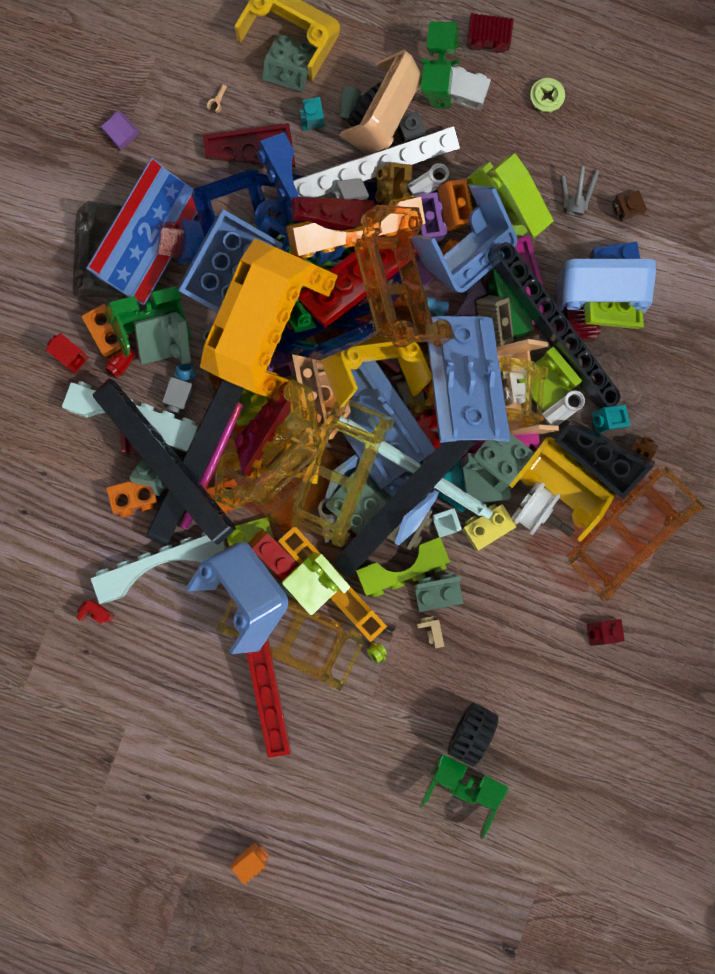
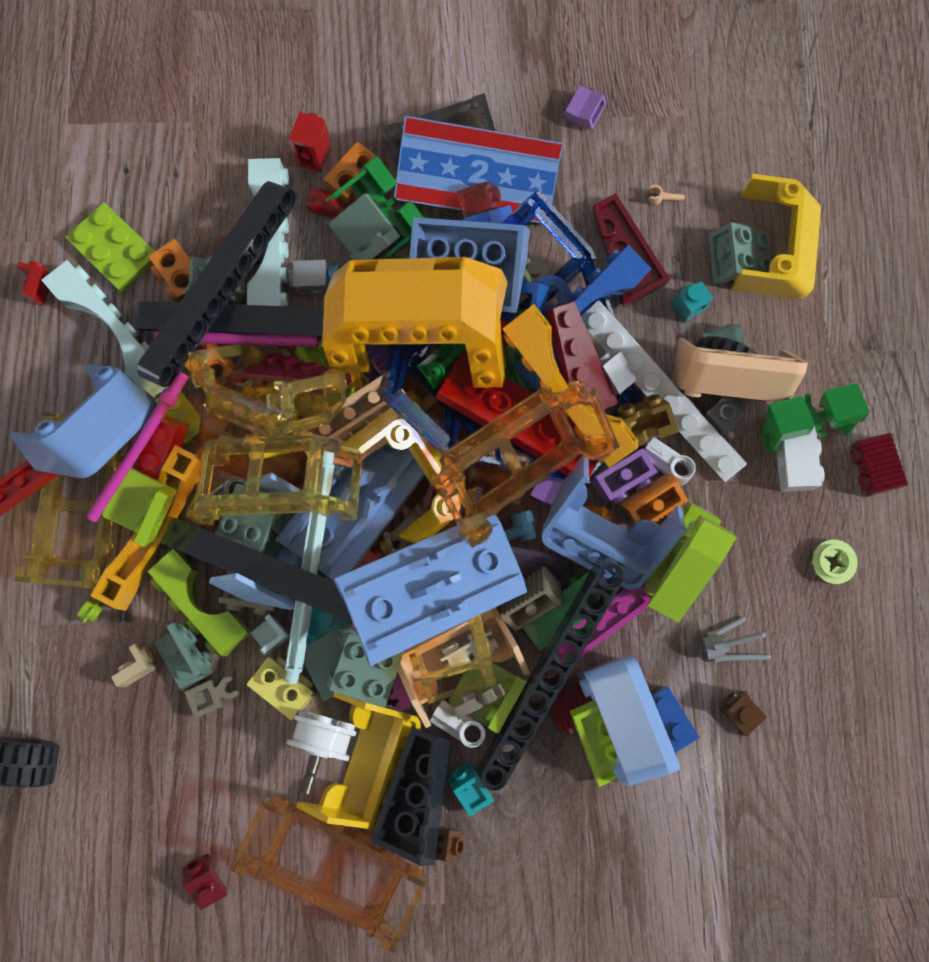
camera: 70 degrees right, 5 degrees down
(88, 543) = (112, 247): none -> lime plate
(244, 529) = (167, 399): none -> dark pink bar
(475, 587) = (208, 697): none -> dark tan plate
(553, 389) = (473, 701): none -> dark tan plate

